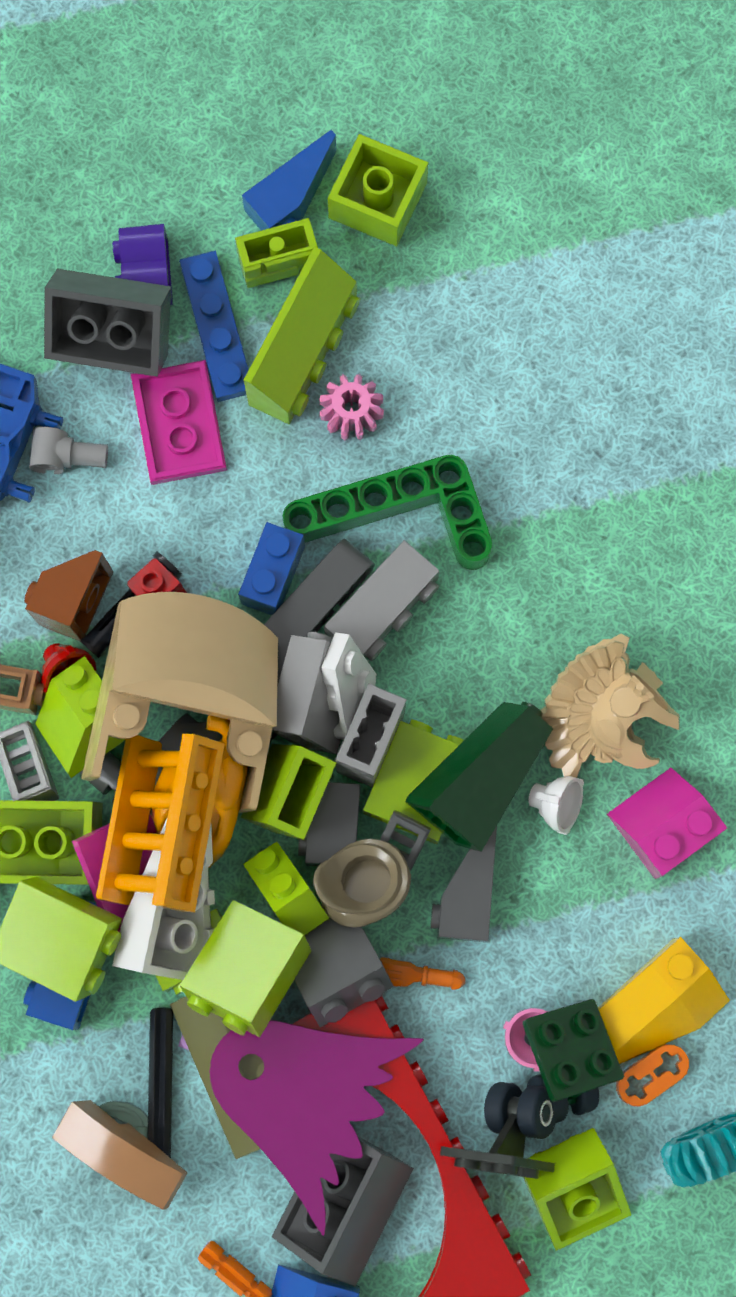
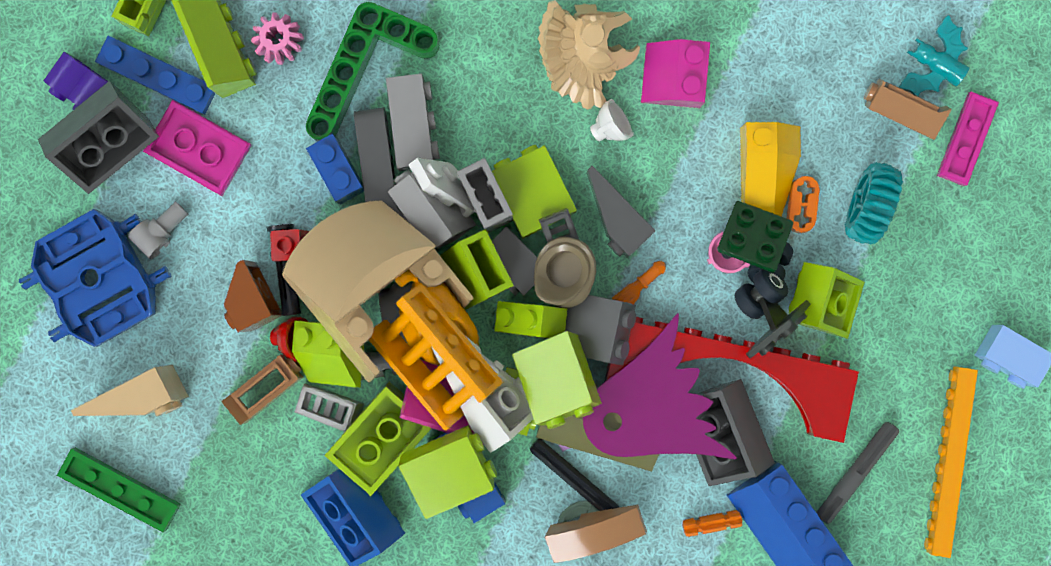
camera: 50 degrees left, 10 degrees up
(482, 775) = (561, 152): dark green slope -> none

